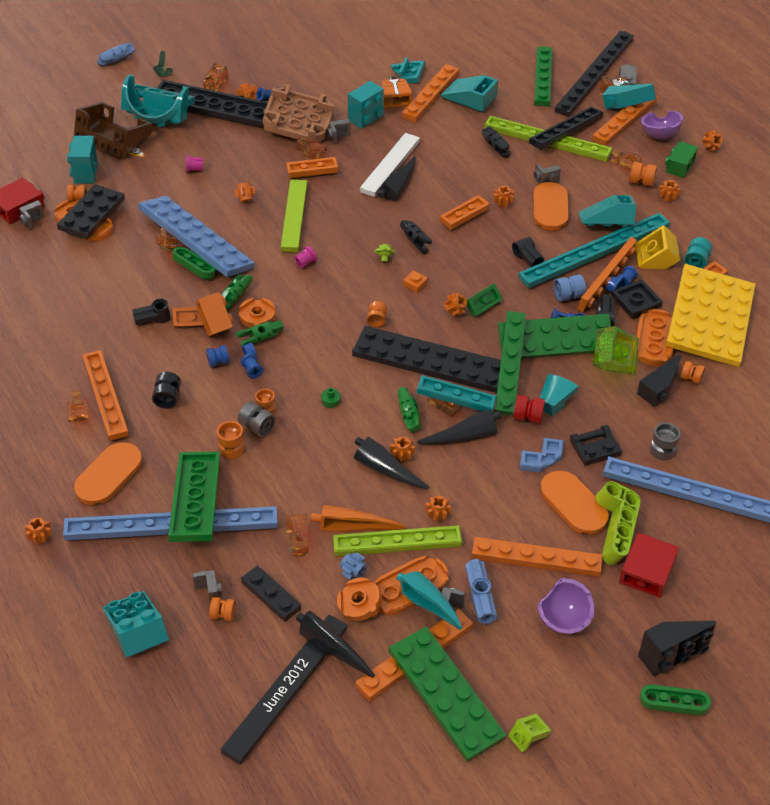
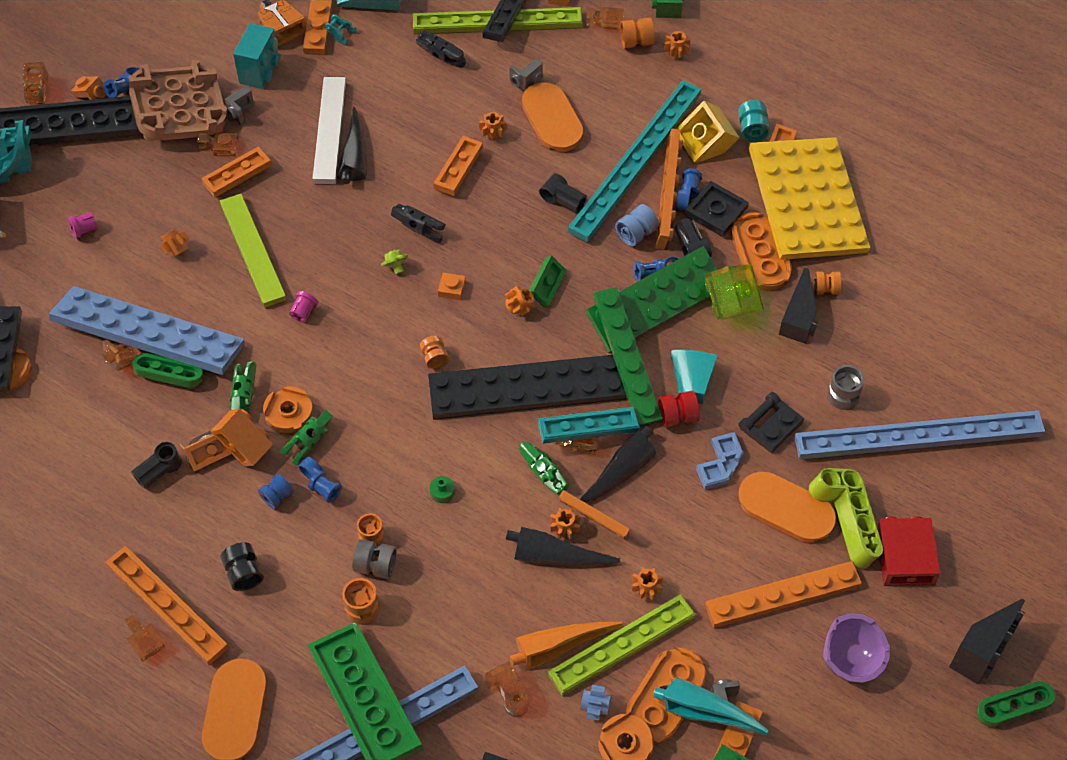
camera: 25 degrees left, 10 degrees up
(426, 451) = (594, 514): none -> orange tile
(436, 107) = (336, 32): none -> teal piece
(482, 600) = (760, 681): medium blue piece -> none
(612, 210) = (629, 101): teal slope -> none

